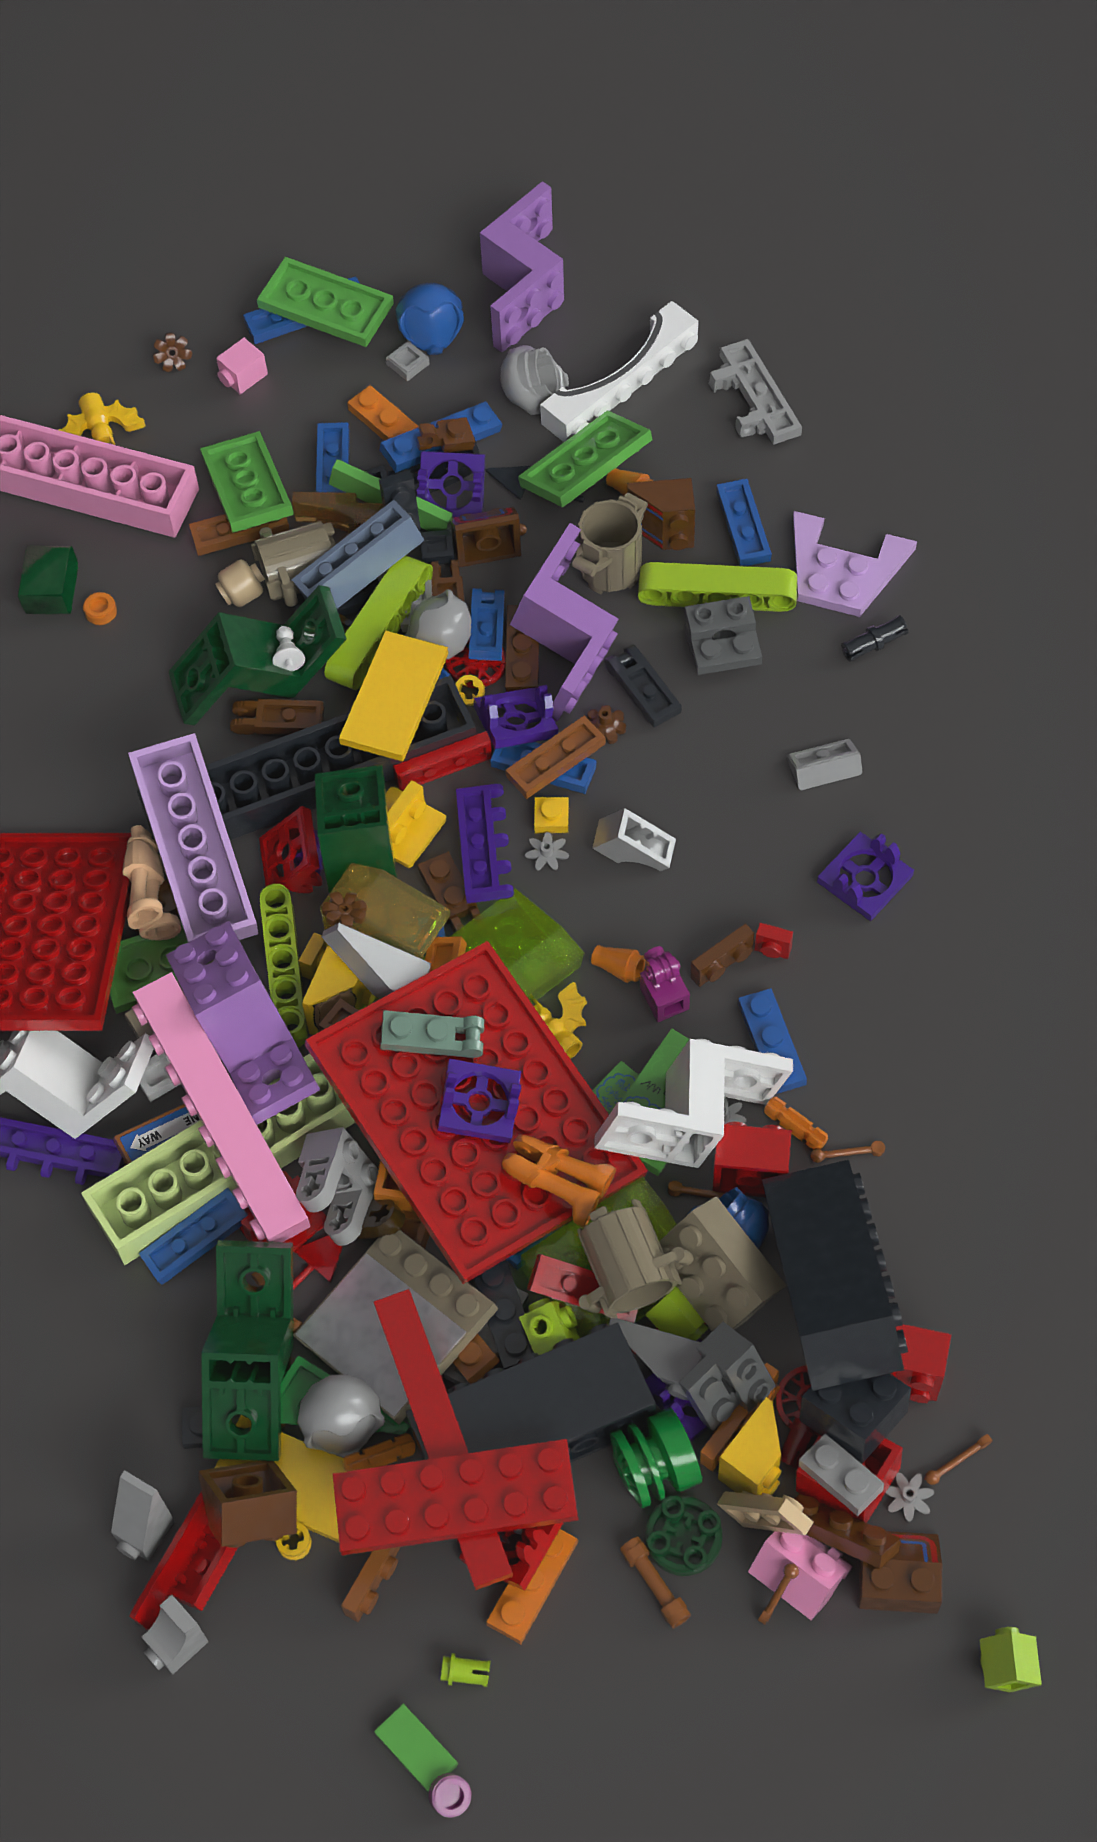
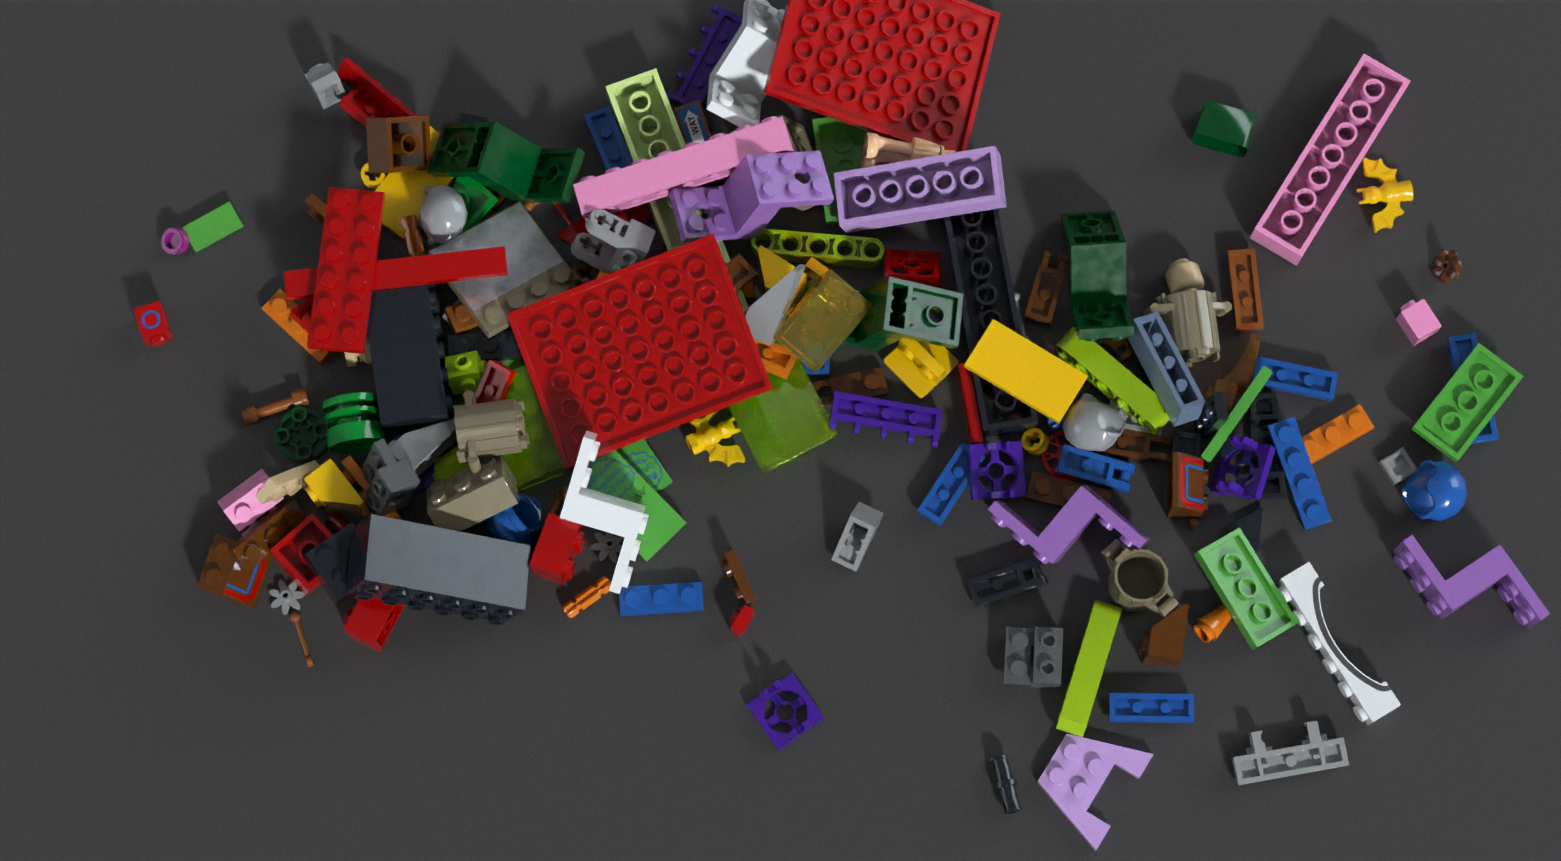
camera: 100 degrees right, 15 degrees up
(100, 608) = (1191, 167): orange tile -> none
(139, 1518) = (409, 75): light grey slope -> none
(246, 482) = (1285, 301): bright green plate -> none
(287, 654) = (1088, 296): white piece -> none
(345, 909) = (814, 282): reddish brown plant -> none
(431, 1034) = (698, 326): sand green plate -> none
(450, 434) = (1286, 477): reddish brown plate -> none
(452, 1123) = (629, 326): dark purple piece -> none
(461, 1669) = (252, 268): lime pin -> none
(531, 377) = (1344, 564): light grey helmet -> none
(542, 1174) = (580, 395): orange piece -> none
(547, 852) = (872, 475): light grey plant -> none
(551, 815) = (903, 481): yellow plate -> none
(555, 757) = (945, 490): dark orange plate -> none
(581, 1787) = (153, 323): none -> red brick
(608, 723) = (977, 549): reddish brown plant -> none
(620, 962) = (755, 500): orange cone -> none
(663, 984) = (723, 525): magenta brick -> none
(790, 1572) = (242, 488): dark orange hinge -> none
(825, 764) = (898, 710): light grey slope -> none
(841, 1474) = (297, 540): light grey plate -> none
(877, 1149) = (553, 652): dark orange hinge -> none
(1010, 1660) = (149, 625): lime brick -> none

